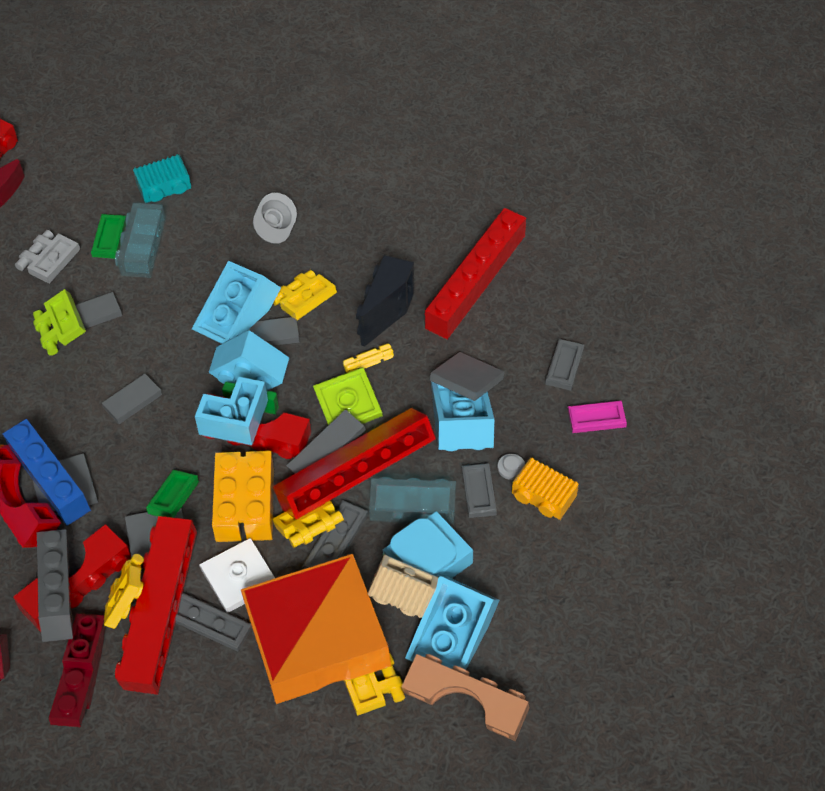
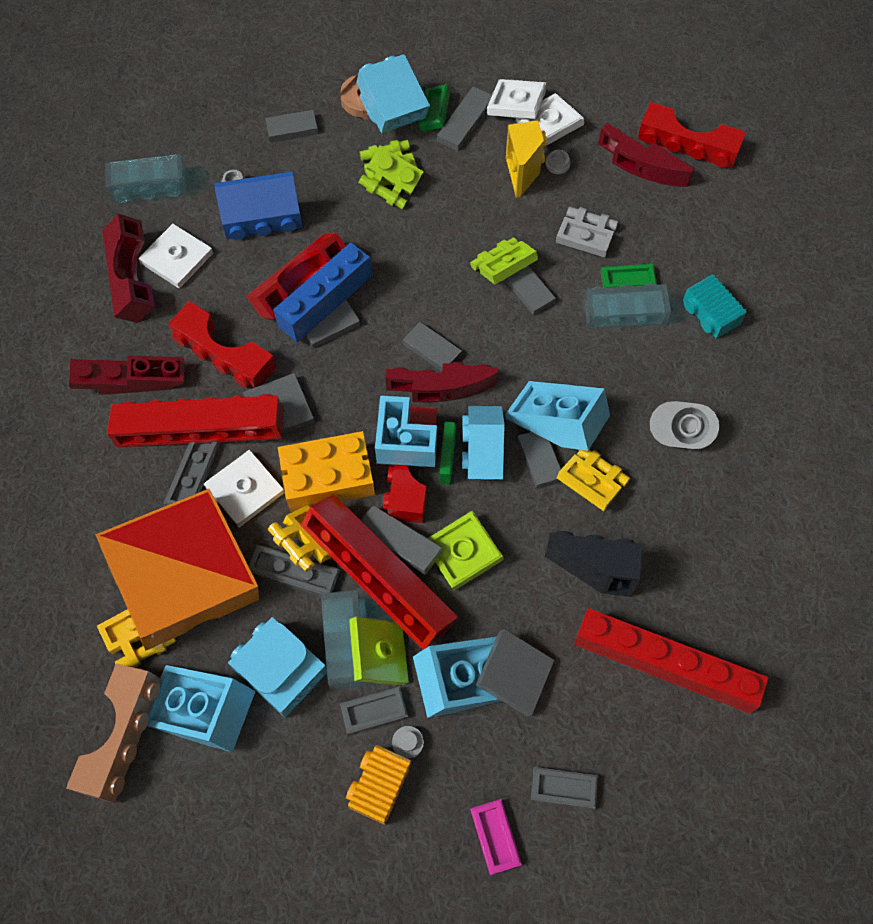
camera: 80 degrees right, 10 degrees up
(53, 586) = (172, 332): dark grey arch -> none
(124, 591) = (195, 388): yellow plate -> none
(172, 494) = (322, 408): green tile -> none
(177, 394) = (453, 383): none -> dark red slope
(368, 358) = (525, 562): yellow axle -> none
(402, 586) = (218, 643): tan brick -> none
(430, 471) = (378, 651): none -> lime plate

